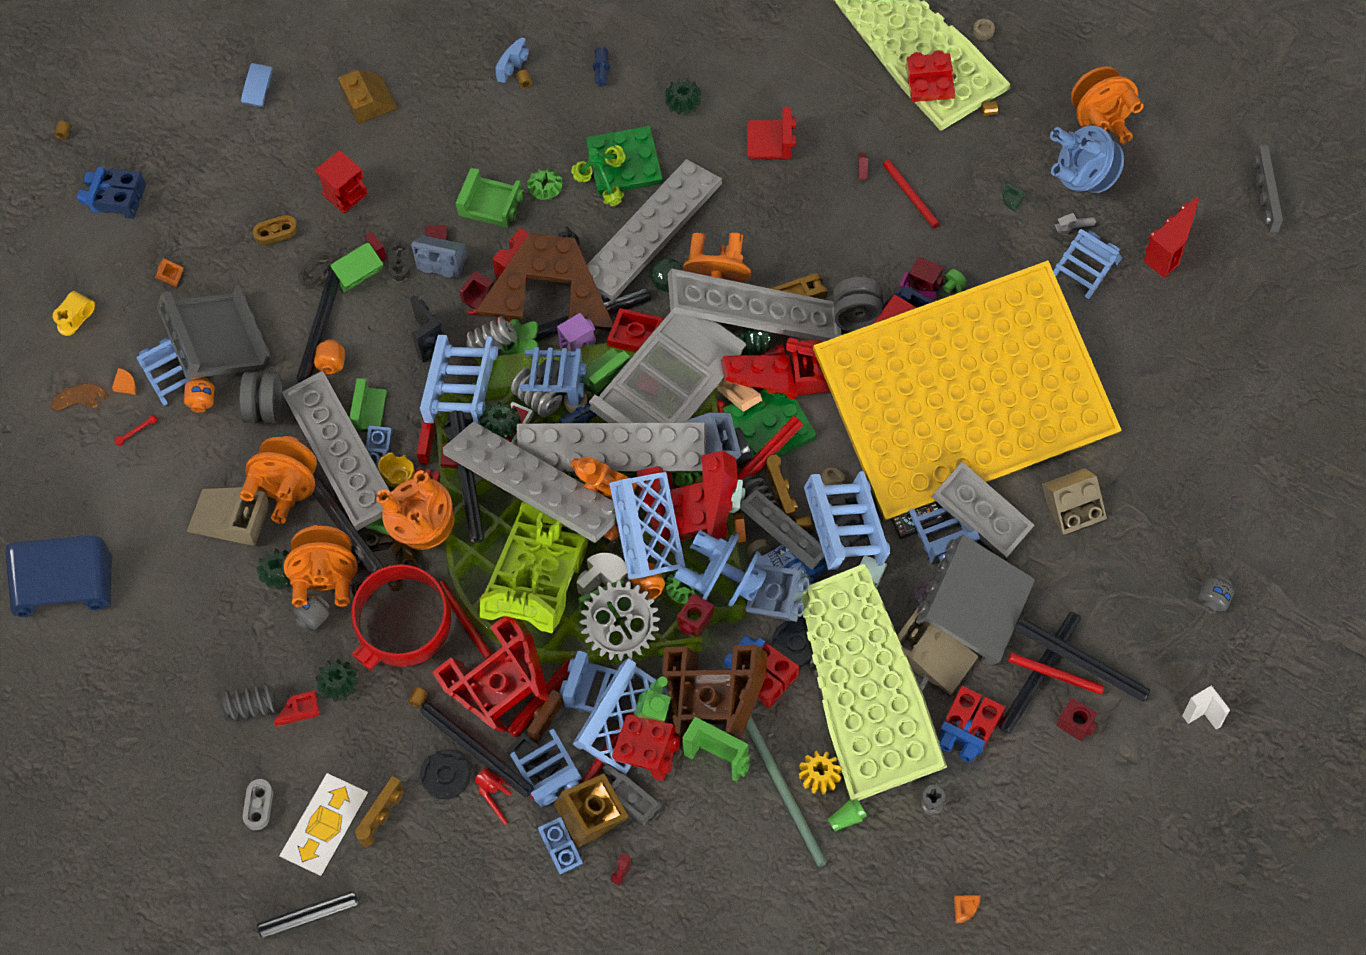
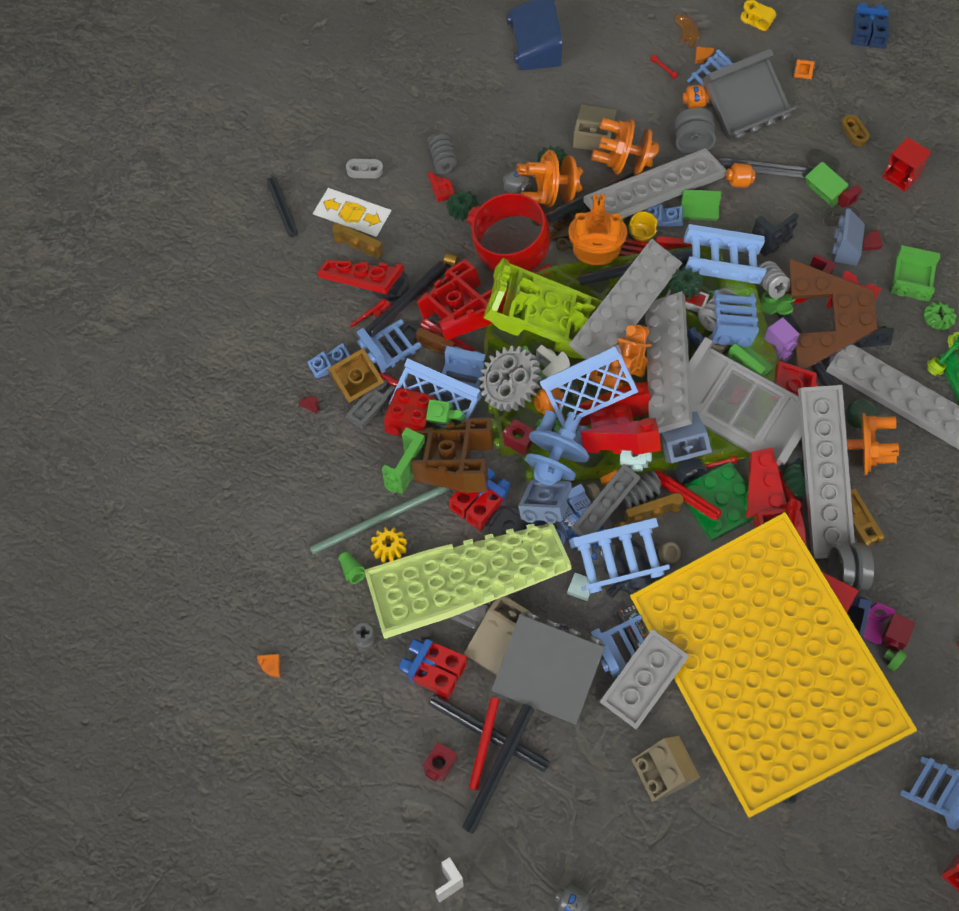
camera: 85 degrees right, 0 degrees up
(440, 795) = (361, 275): none -> red wing
(739, 395) = (739, 474): light nougat tile -> none

